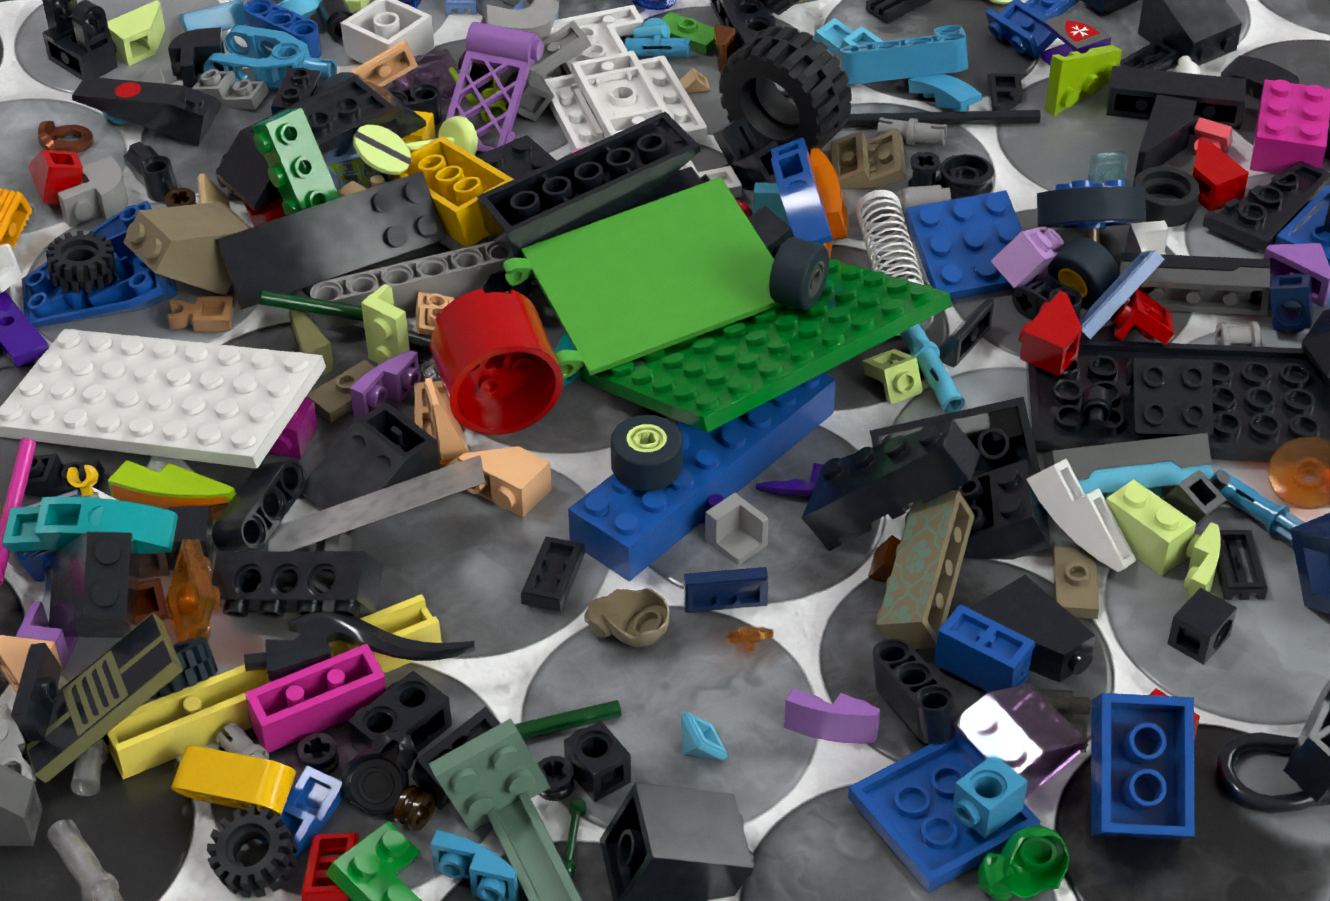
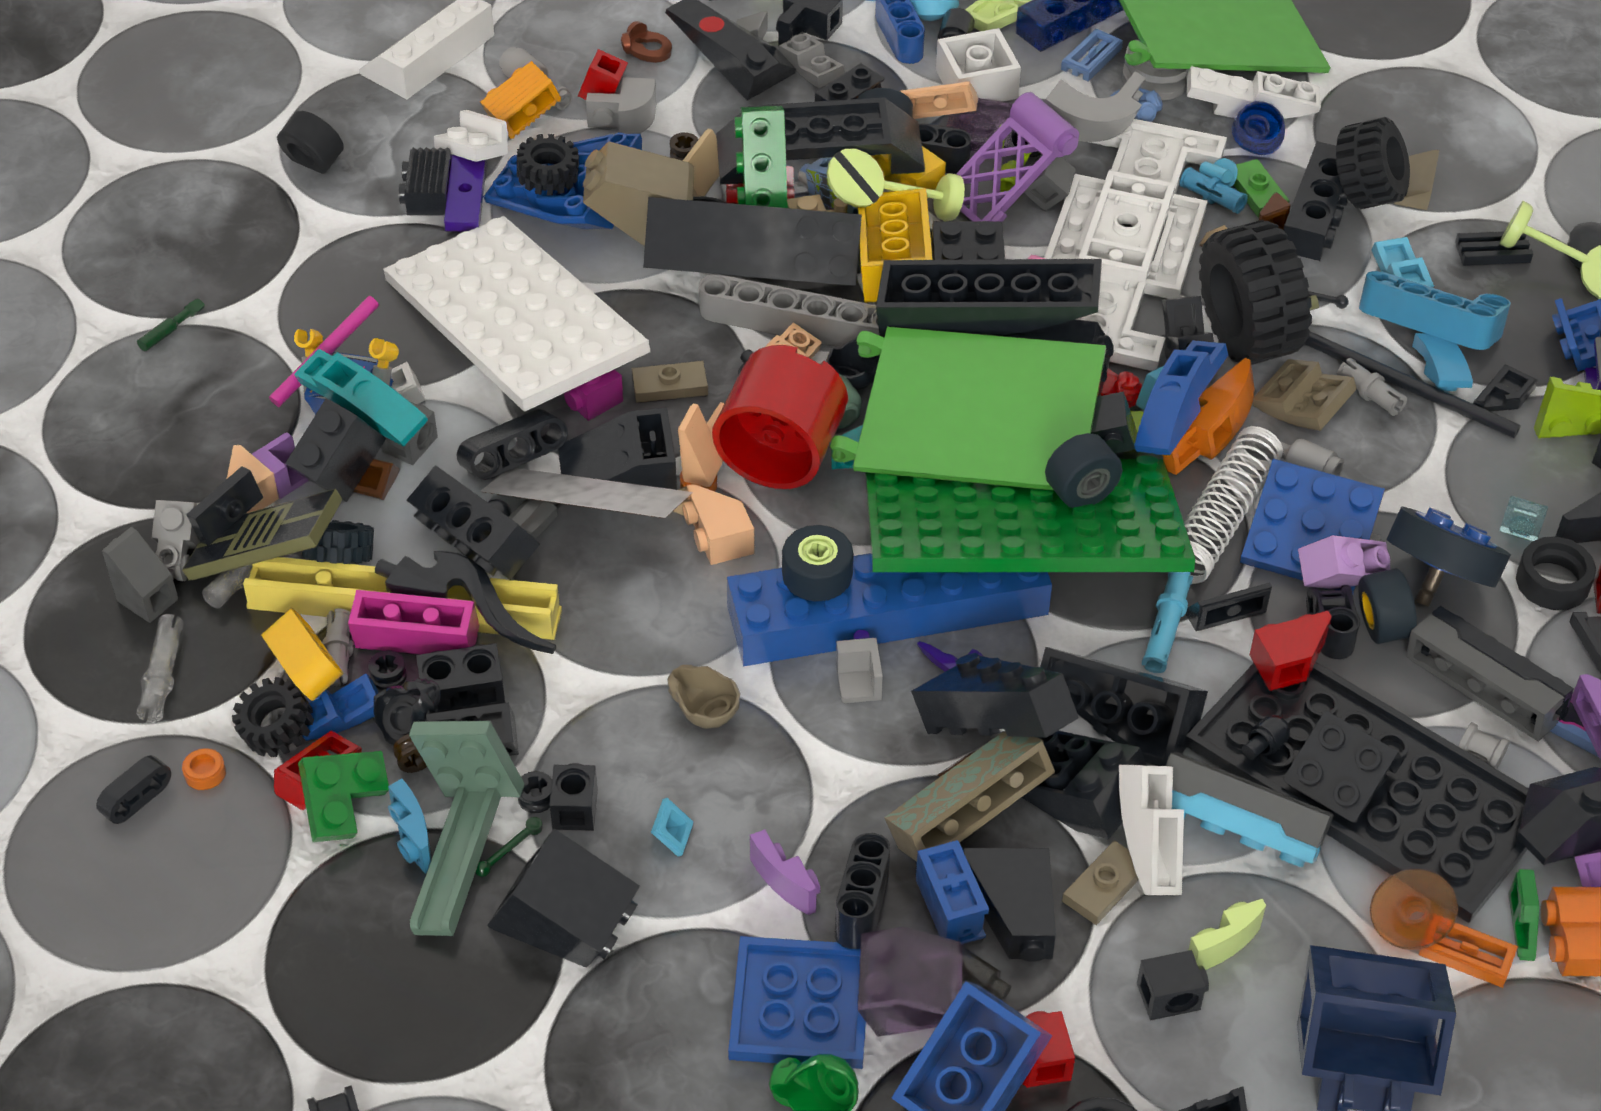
camera: 35 degrees right, 5 degrees up
(49, 475) = (395, 329): black slope -> none
(151, 169) = (683, 106): black piece -> none
(169, 488) = (457, 396): lime slope -> none
(191, 593) = (395, 491): clear orange plate -> none
(192, 524) = (439, 441): black brick -> none
(207, 314) = (618, 259): medium nougat plate -> none
(267, 64) = (878, 46): dark azure piece -> none
(310, 305) = (707, 302): dark green bar -> none
(310, 339) = (668, 326): olive slope -> none
(384, 326) = (729, 340): yellowish green bracket -> none
(388, 380) = (700, 388): medium lavender slope -> none
(553, 574) = (683, 625): black plate -> none
(559, 49) = (1098, 153): light grey hinge -> none
(569, 719) = (578, 749): dark green bar -> none
(725, 589) = (801, 717): dark blue plate -> none
(749, 635) = (786, 765): clear orange plant -> none
(897, 372) = (1126, 609): yellowish green bracket -> none
(924, 169) = (1341, 433): black bush -> none
(966, 175) = (1378, 457): black piece -> none
(989, 796) = (832, 995): dark azure brick -> none
(1118, 293) = (1389, 643): medium blue tile -> none
(1147, 237) = (1489, 610): white panel -> none
(1151, 318) = (1404, 678): red bracket -> none
(1151, 527) = (1209, 870): yellowish green brick -> none
(1198, 496) = (1267, 872): black brick -> none
(1241, 586) = (1253, 976): black tile -> none
(1274, 517) = (1342, 930): dark azure axle -> none
(1295, 288) = (1564, 741): dark blue brick -> none

